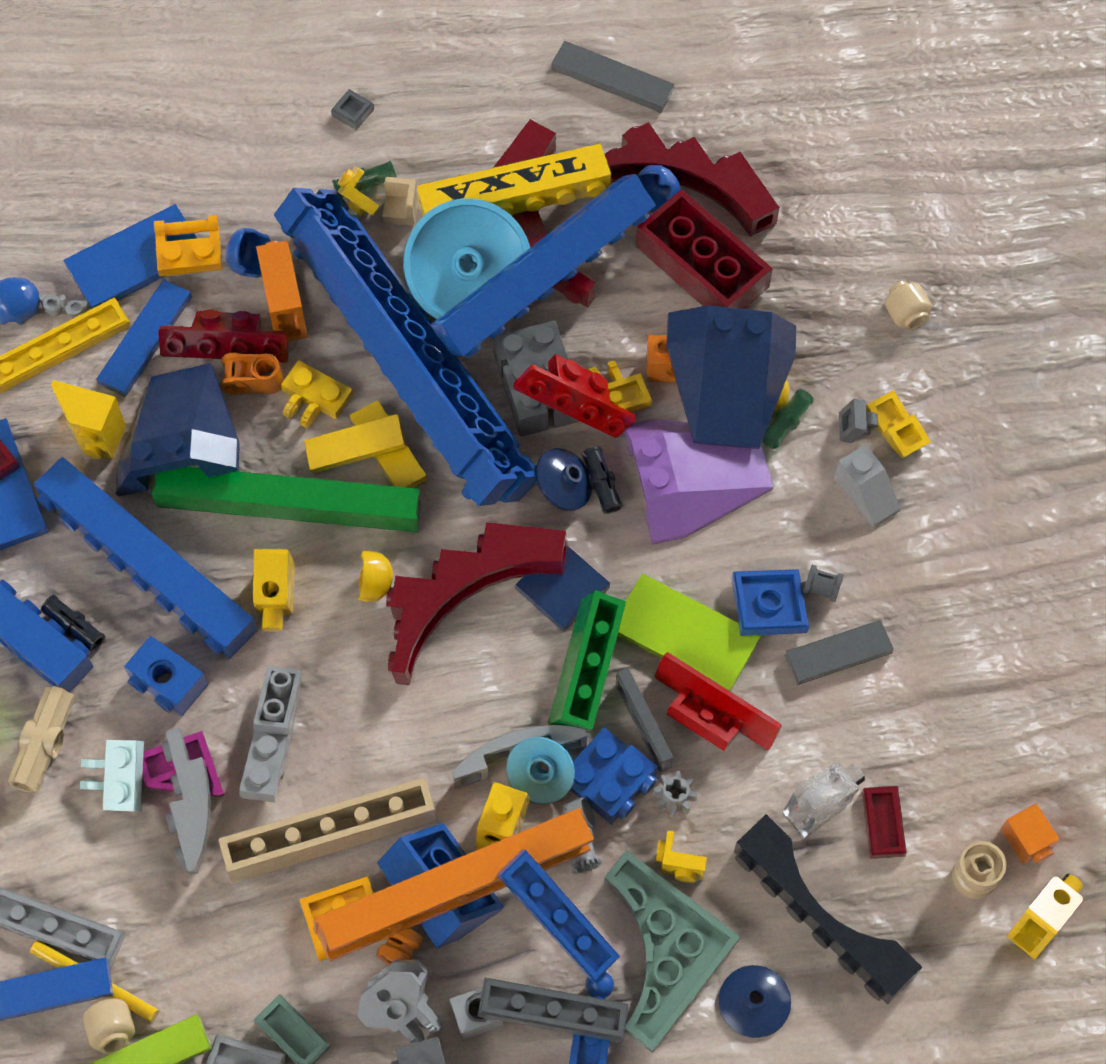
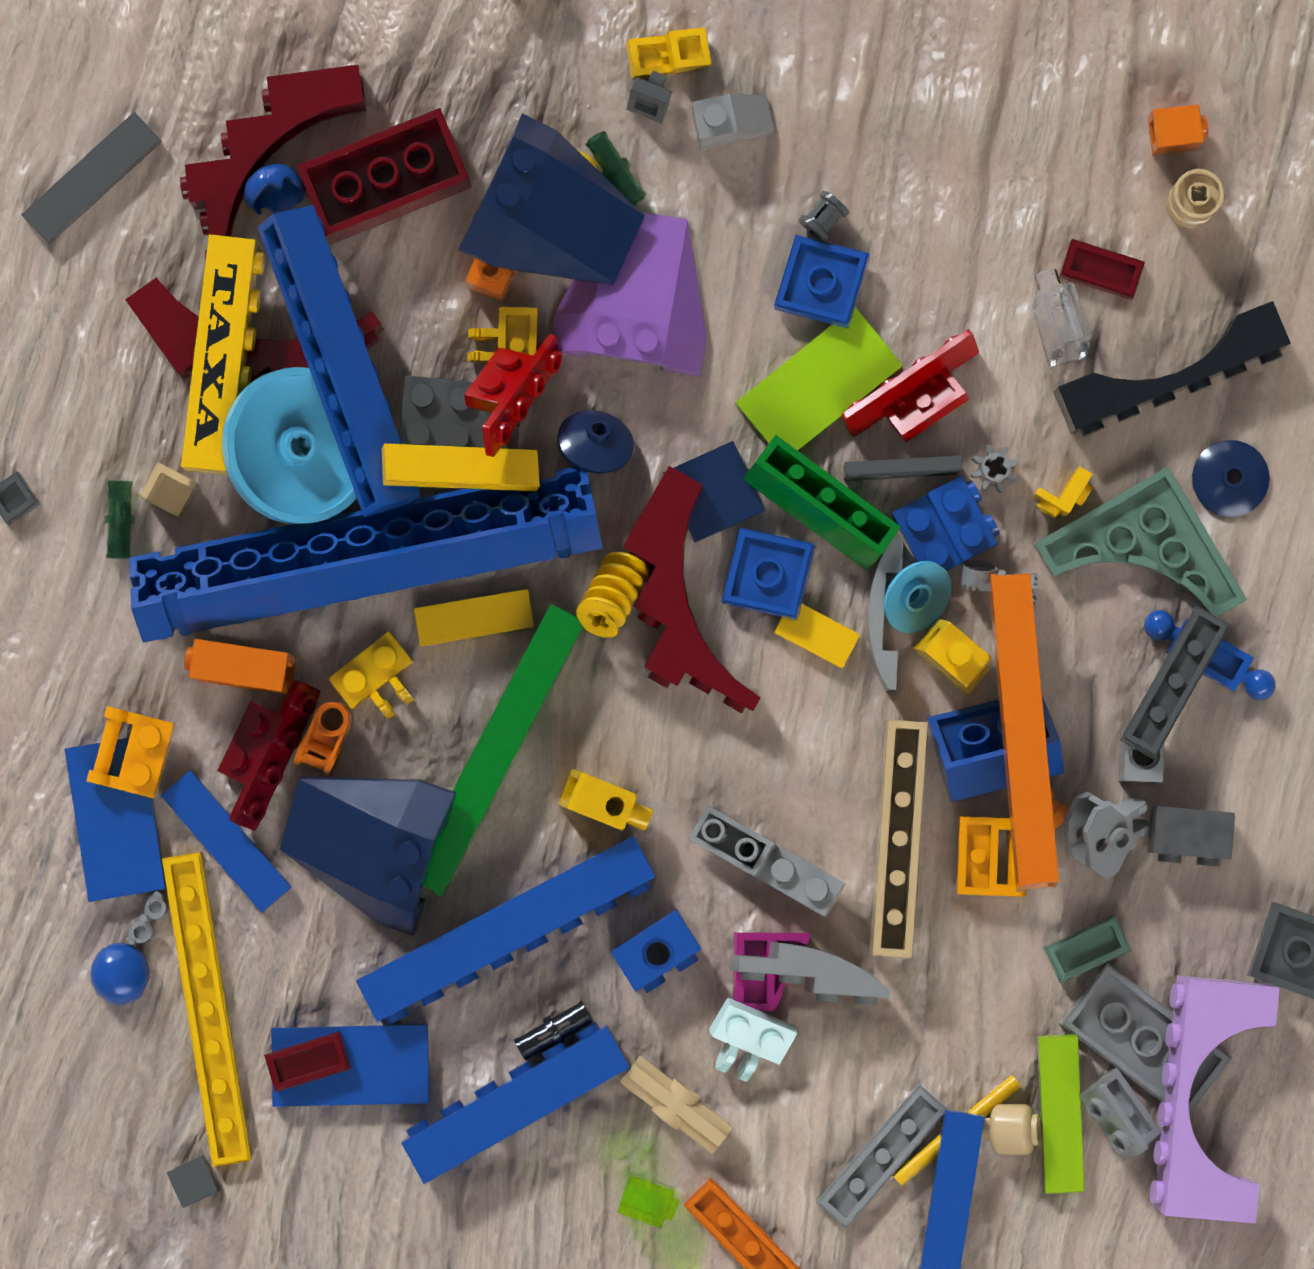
camera: 65 degrees left, 20 degrees up
(92, 419) = (322, 936): yellow slope -> none
(242, 251) = (167, 686): blue hair -> none
(355, 443) = (460, 652): yellow tile -> none
(357, 201) = (147, 539): yellow bracket -> none
(375, 576) = (632, 690): yellow hair -> none
(444, 528) = (612, 594): none -> yellow piece
(478, 707) = (819, 636): none -> yellow tile
(497, 374) = (459, 467): none -> yellow tile
(512, 649) = (768, 574): none -> blue tile
(558, 915) = (1091, 640): blue tile -> none
(602, 480) = (608, 400): black pin -> none
(839, 652) = (903, 233): dark grey tile -> none
(1047, 915) = (1266, 151): yellow torso -> none

